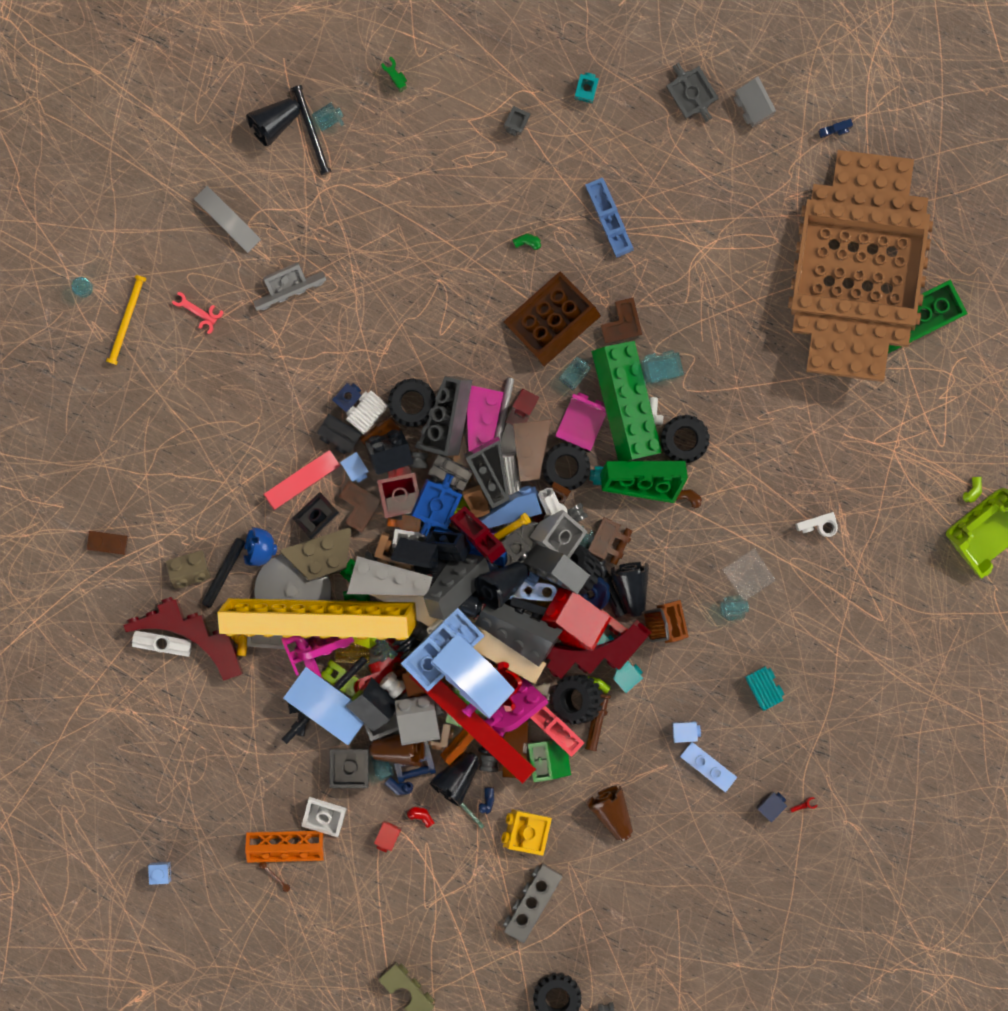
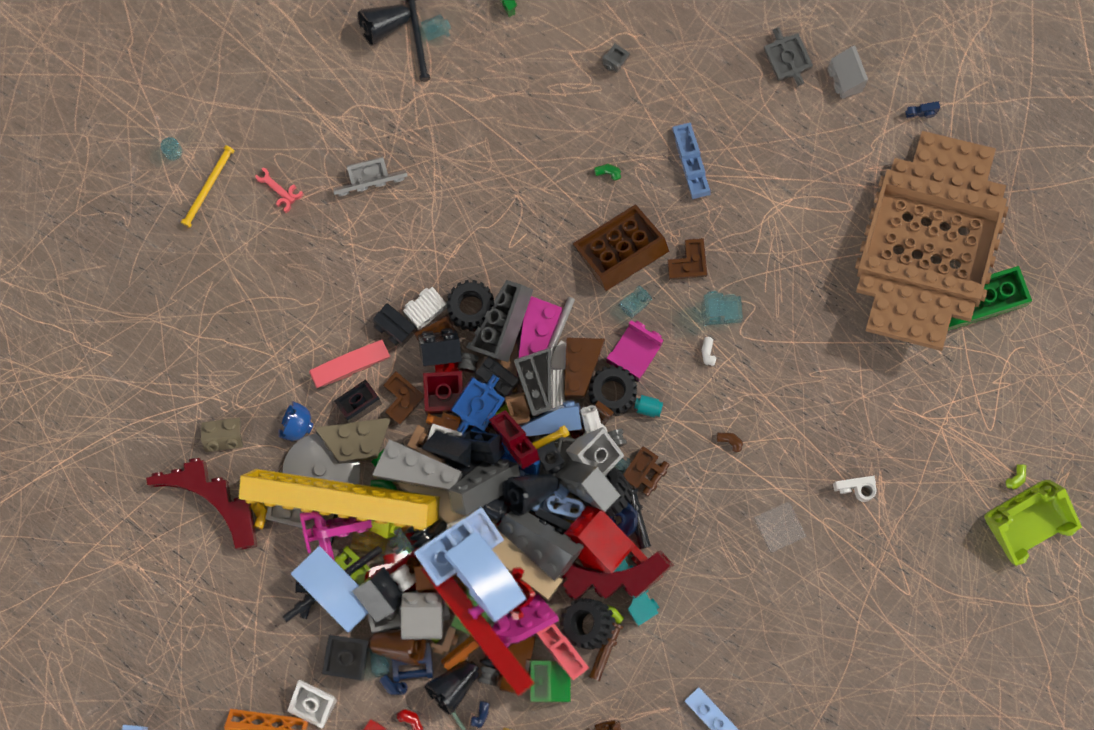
camera: 10 degrees right, 10 degrees down
(107, 542) = (147, 396): reddish brown plate -> none
(150, 642) = (192, 507): white piece -> none
(223, 572) = (255, 443): black axle -> none
(227, 219) = (323, 108): light grey slope -> none
(340, 399) = (404, 296): dark blue brick -> none
(355, 468) = (404, 360): light blue brick -> none
(522, 407) = (578, 326): dark red bracket -> none
(581, 94) = (687, 30): teal brick -> none
(626, 401) = (682, 336): green brick -> none
(632, 585) = (661, 519): black cone -> none
(645, 479) = (690, 413): green wedge -> none
(666, 622) = (690, 560): dark orange piece -> none
(686, 731) = (694, 675): light blue brick -> none
(697, 427) = (739, 366): black tyre -> none
(734, 608) = (760, 557): clear light blue head -> none
(764, 688) = (780, 643): teal brick -> none

